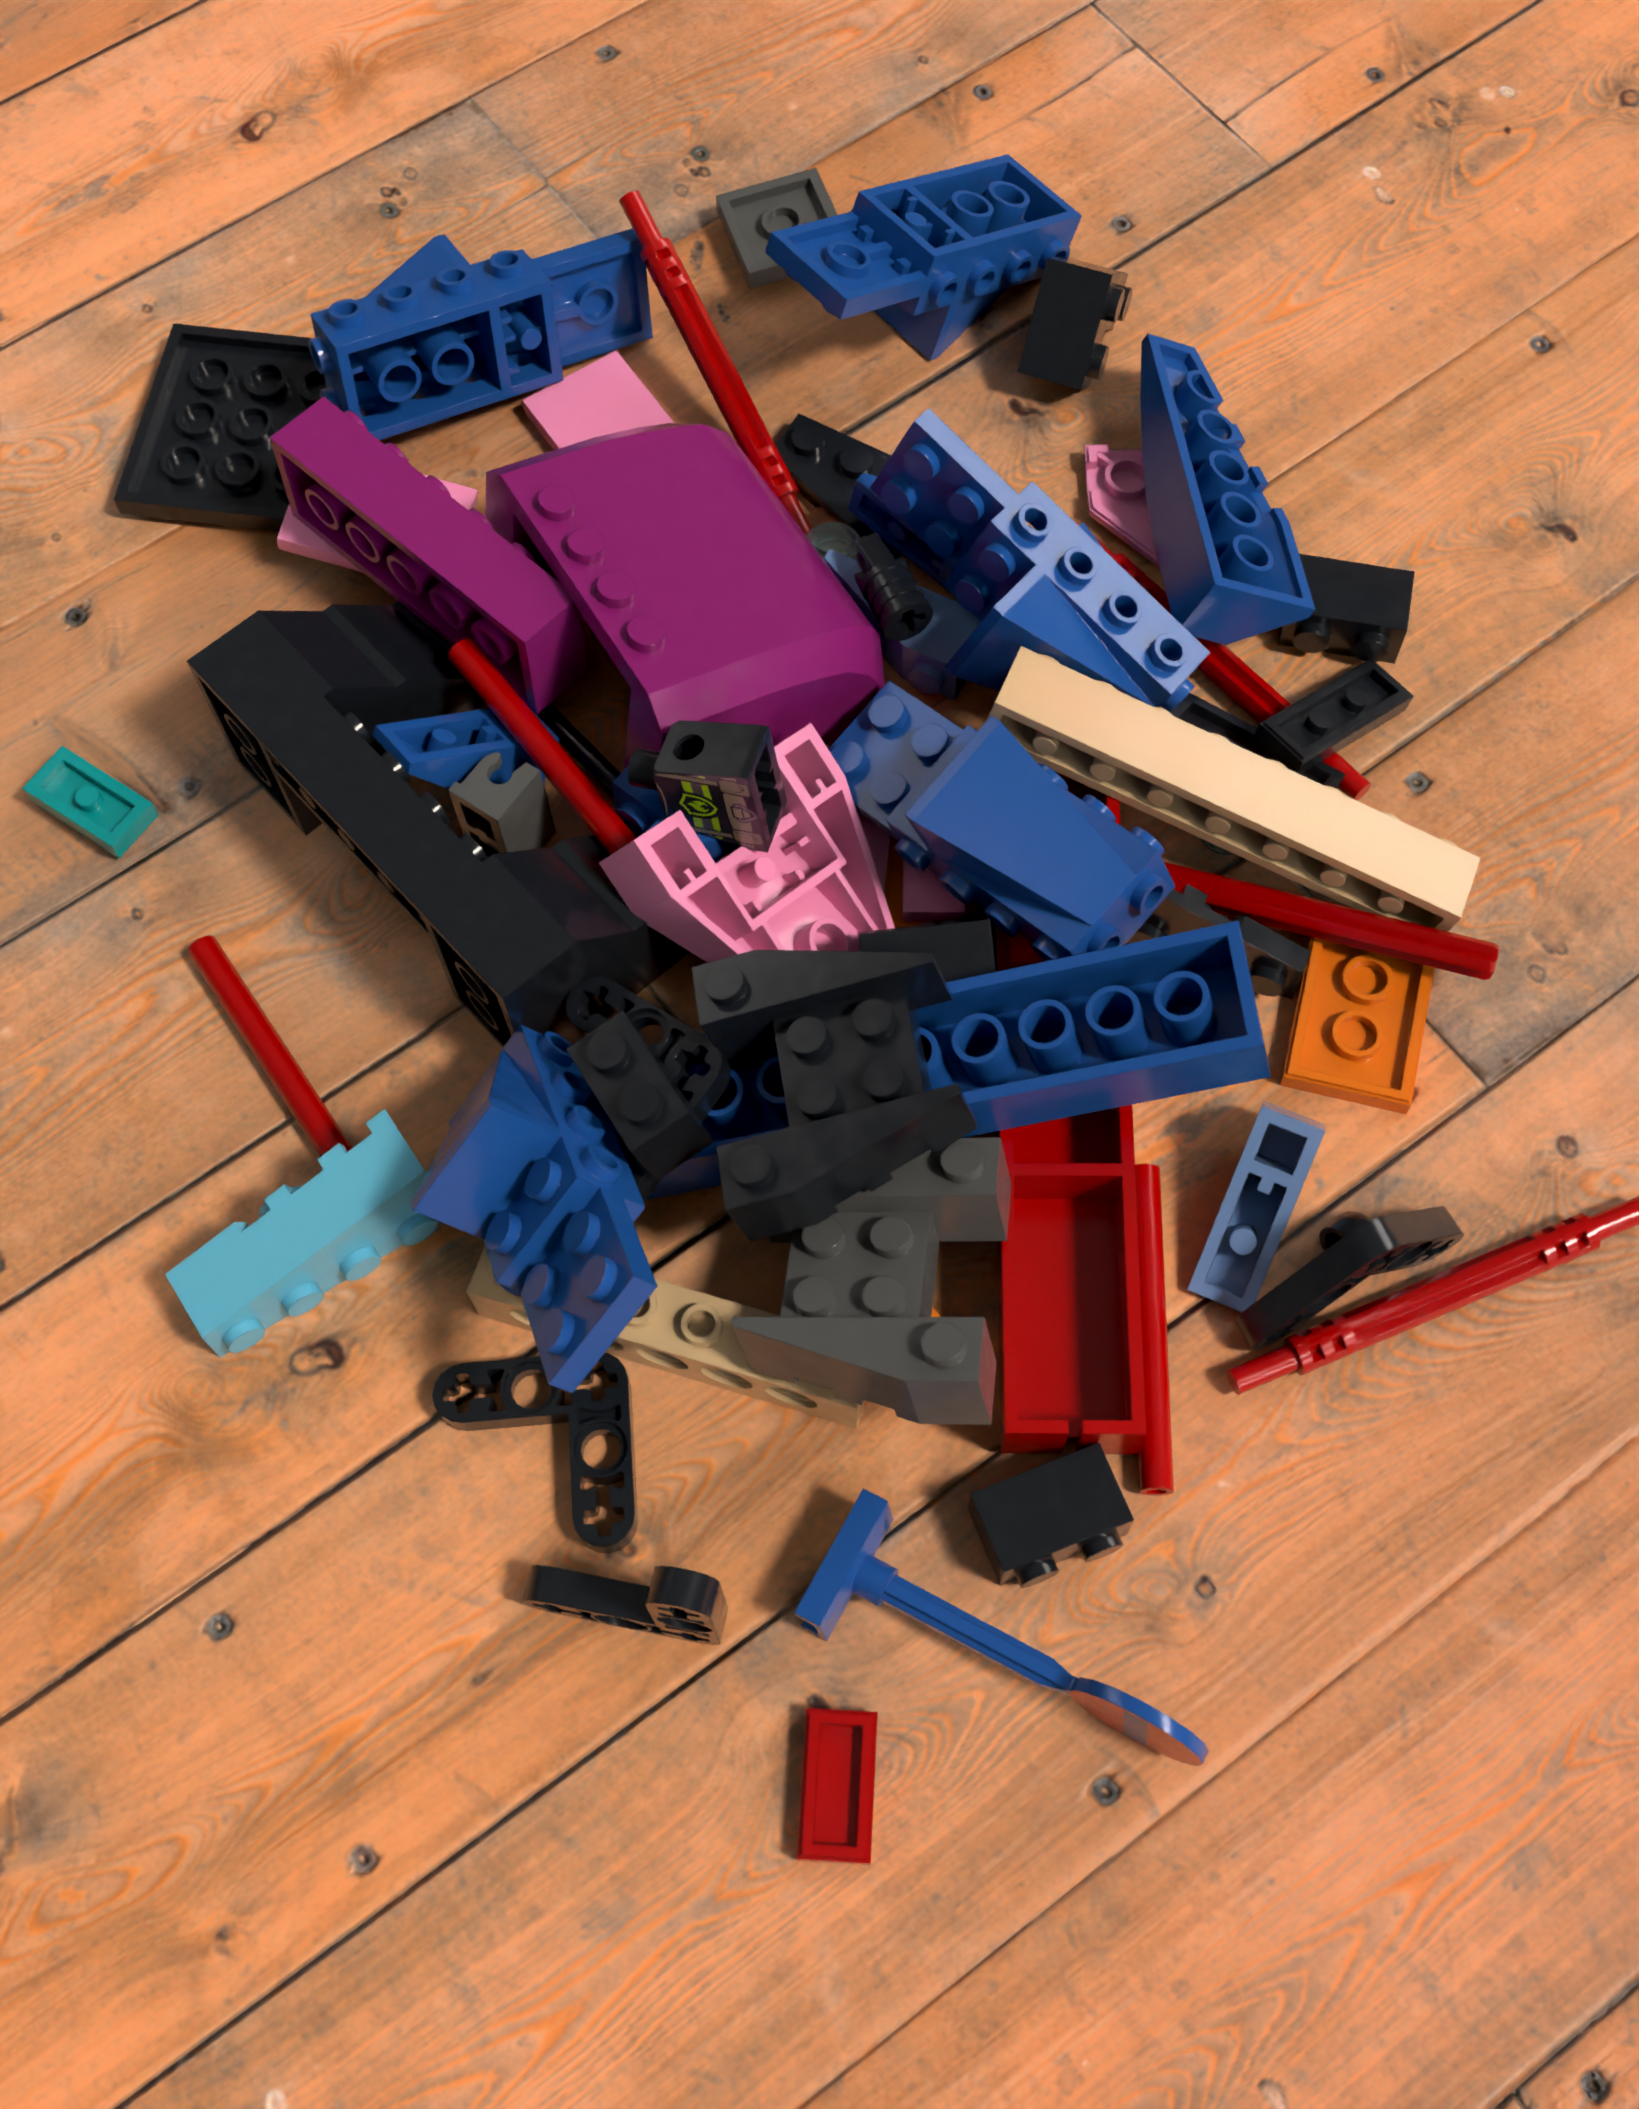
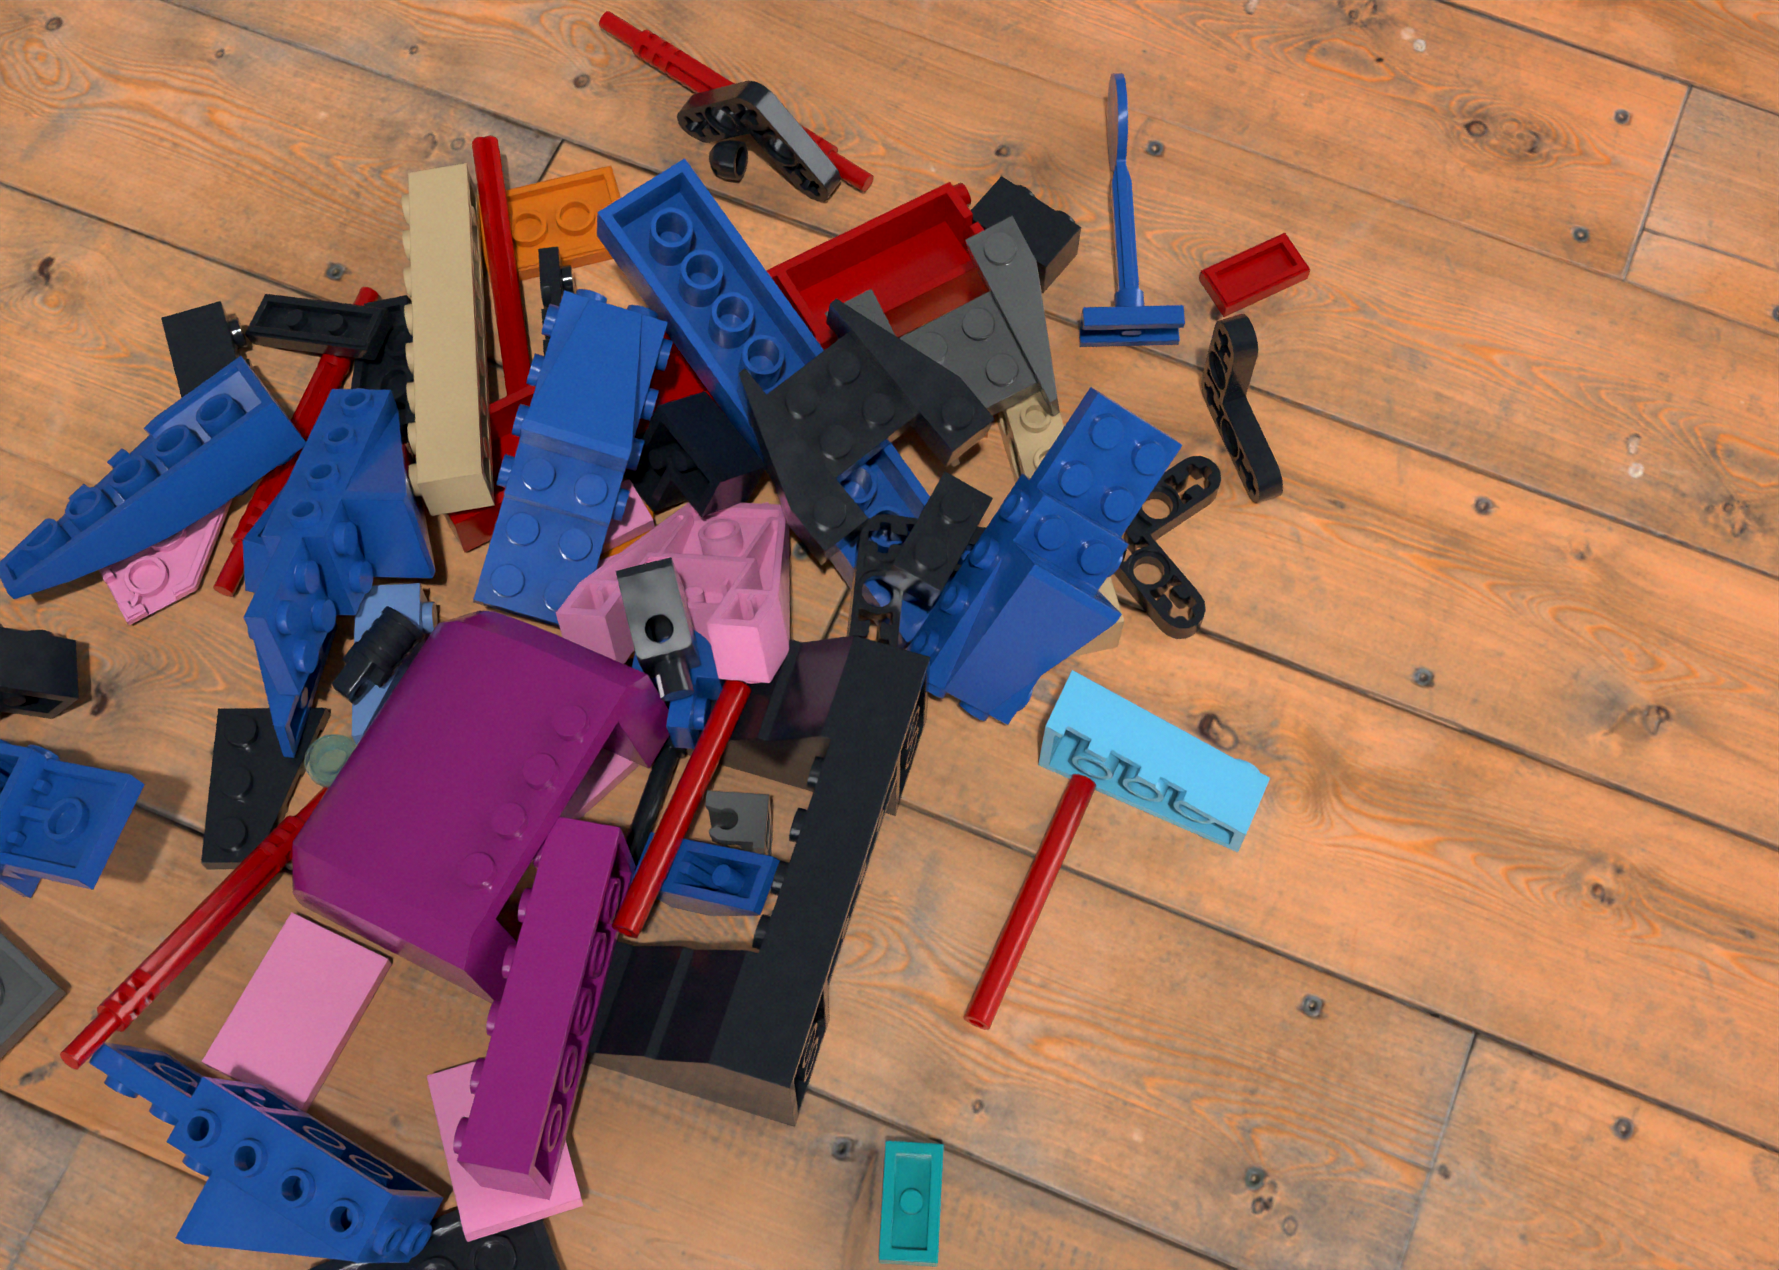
camera: 125 degrees left, 0 degrees up
(1257, 1207) = (763, 212): medium blue slope -> none

